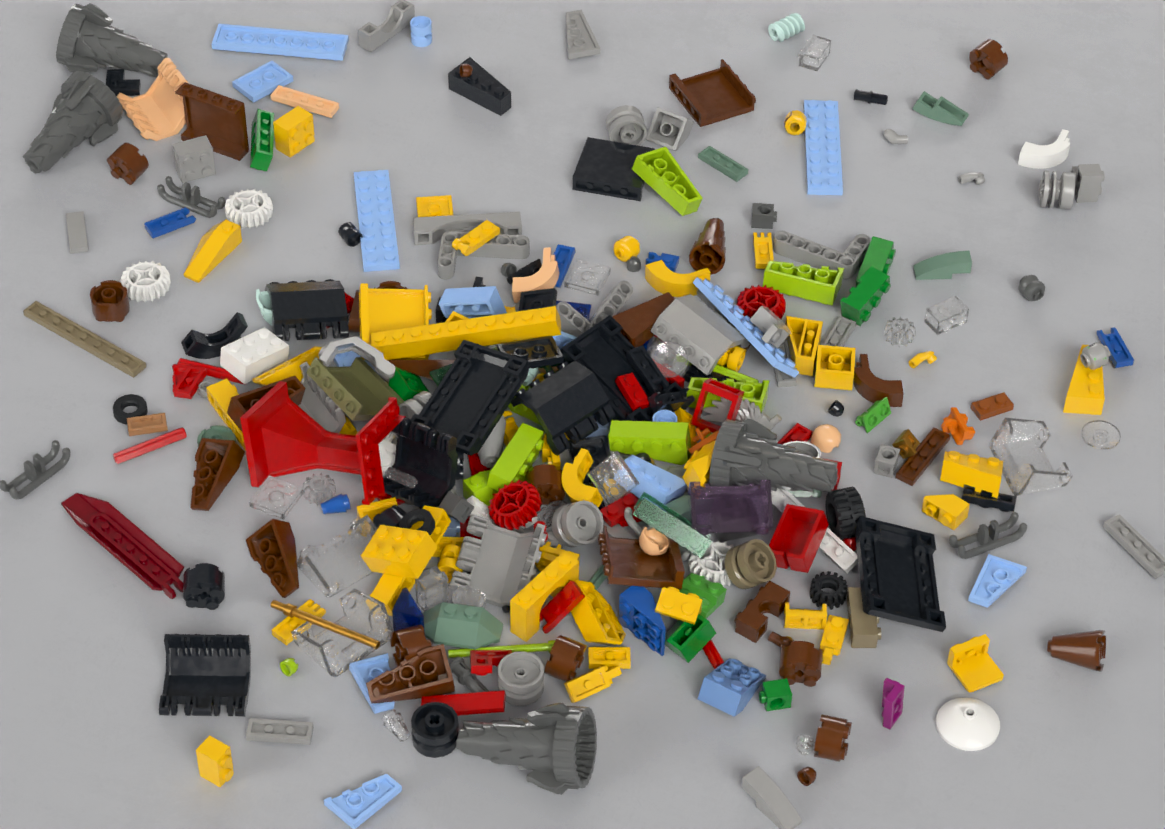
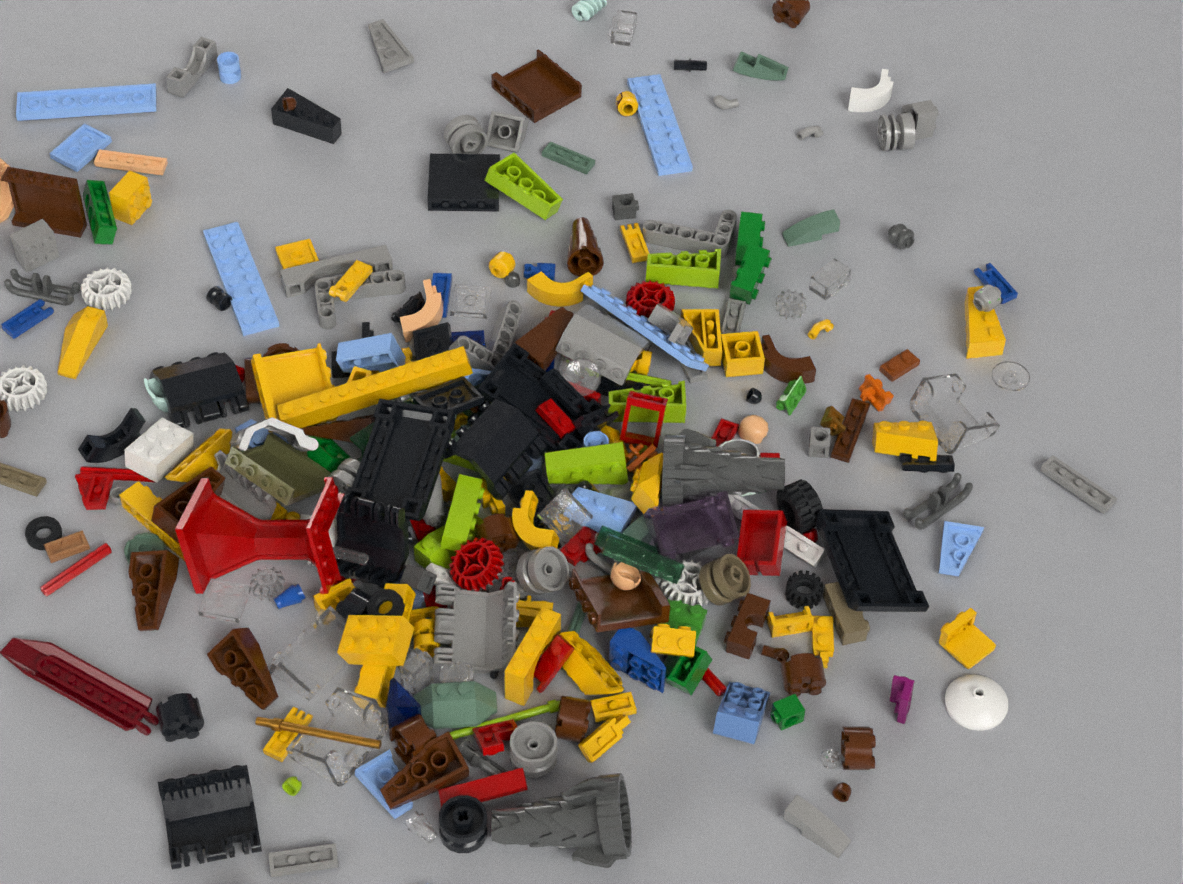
camera: 15 degrees left, 5 degrees up
(508, 268) = (390, 307): dark grey hinge -> none
(746, 411) = (674, 421): light grey animal -> none
(946, 509) = (890, 482): yellow slope -> none
(1080, 648) = (1059, 602): reddish brown cone -> none

